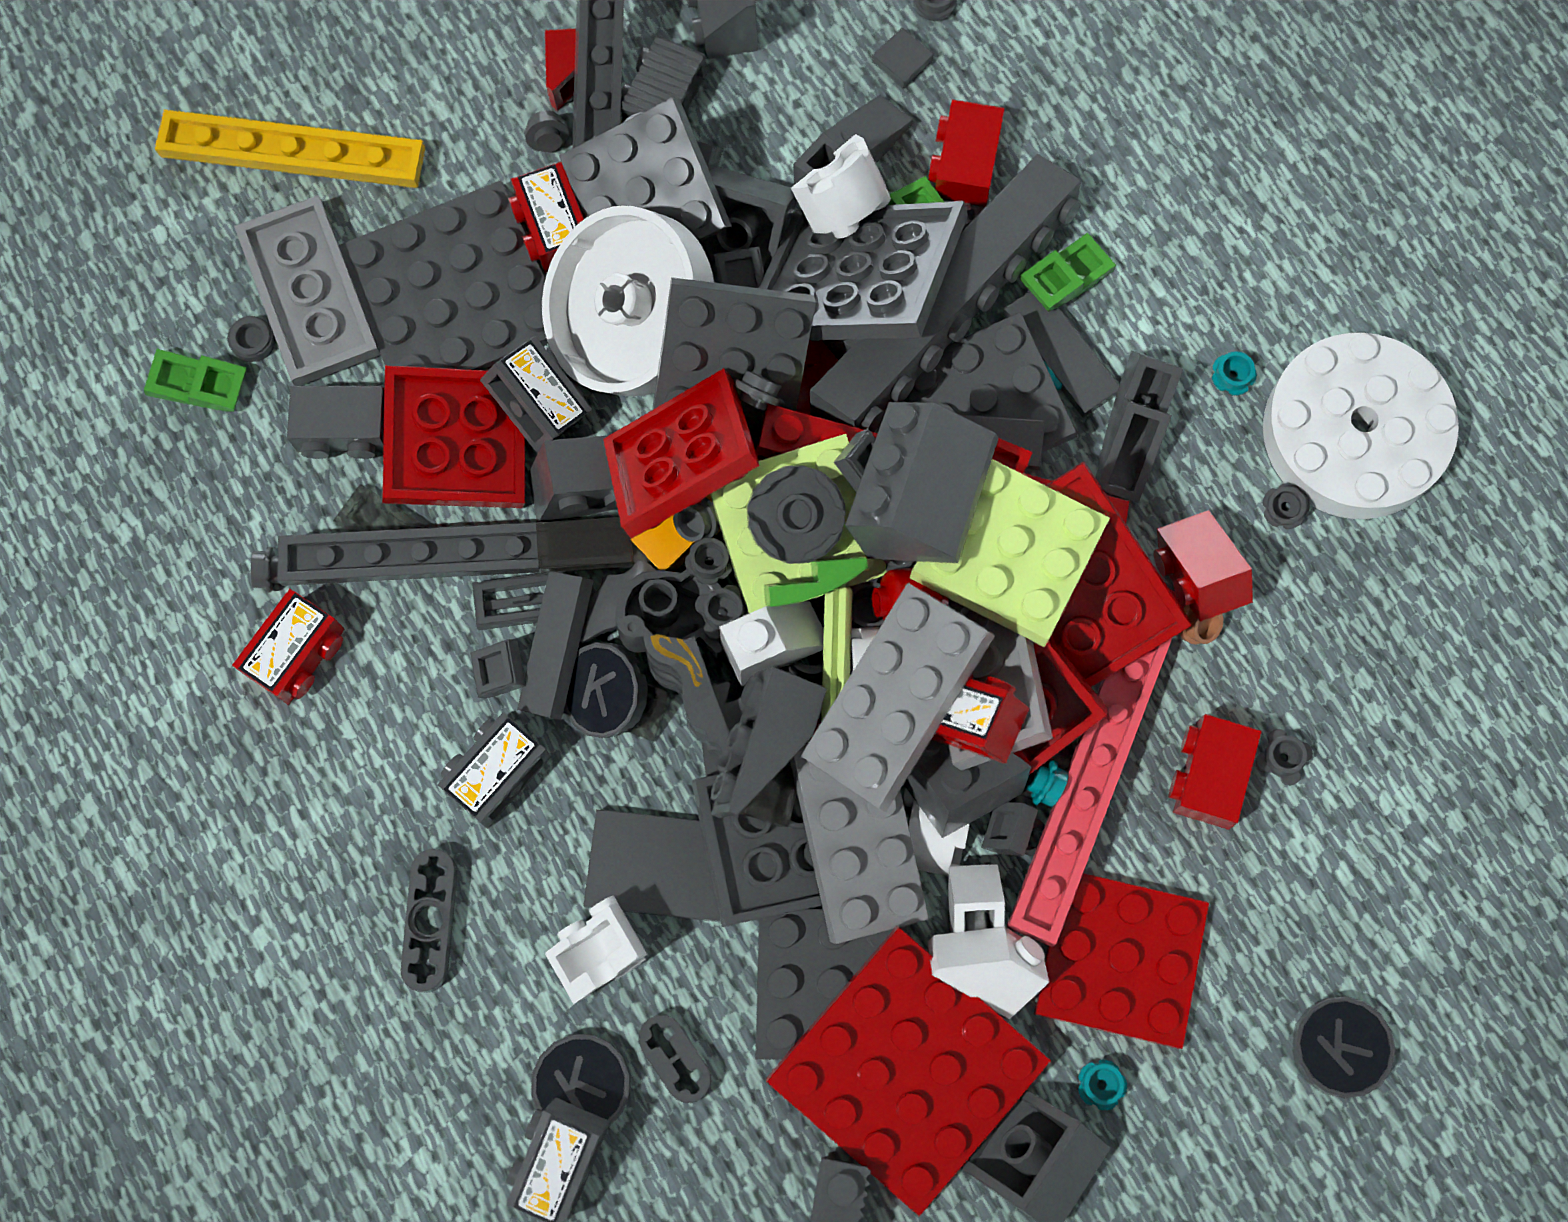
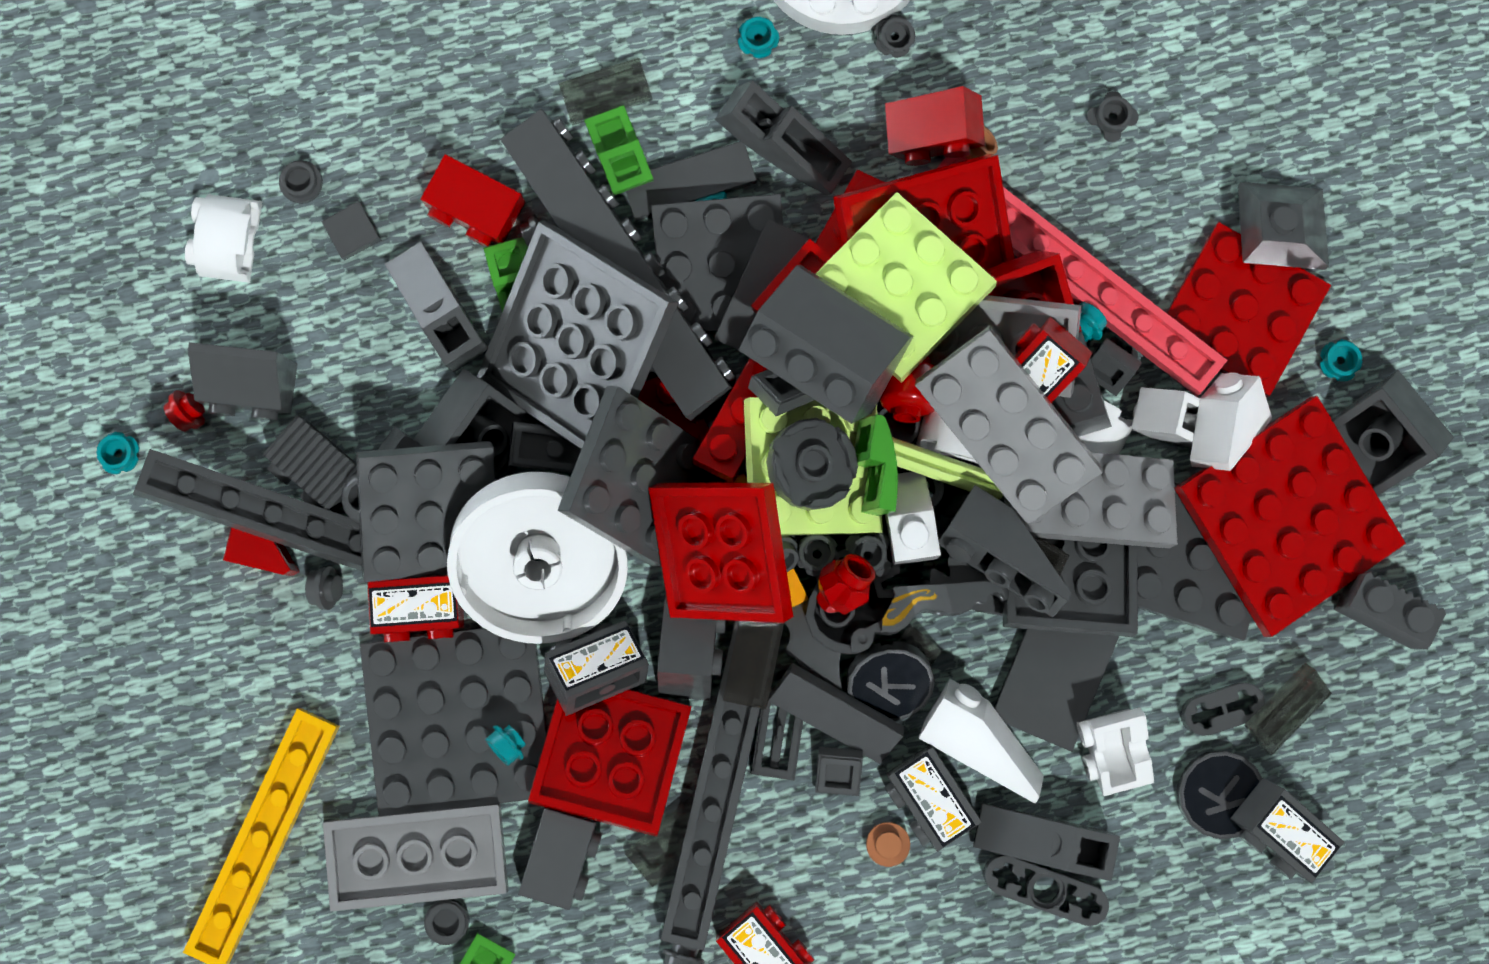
camera: 75 degrees left, 10 degrees up
(435, 741) = (888, 844): none -> nougat plate
(436, 332) = (506, 744): none -> teal plate
(479, 904) = (1047, 841): none -> dark grey slope
(570, 798) = (976, 735): none -> white slope
(683, 589) = (845, 584): none -> red rock
(694, 1130) = (1288, 709): none -> clear smoke tile
(758, 390) = (679, 463): dark grey plate -> none
(842, 191) = (493, 327): white cylinder -> none
(1126, 245) = (605, 90): none -> clear smoke tile
(1215, 771) = (1112, 178): red brick -> none
(1229, 974) = (1283, 226): none -> dark grey slope
(1343, 1047) = (1364, 154): black tile -> none

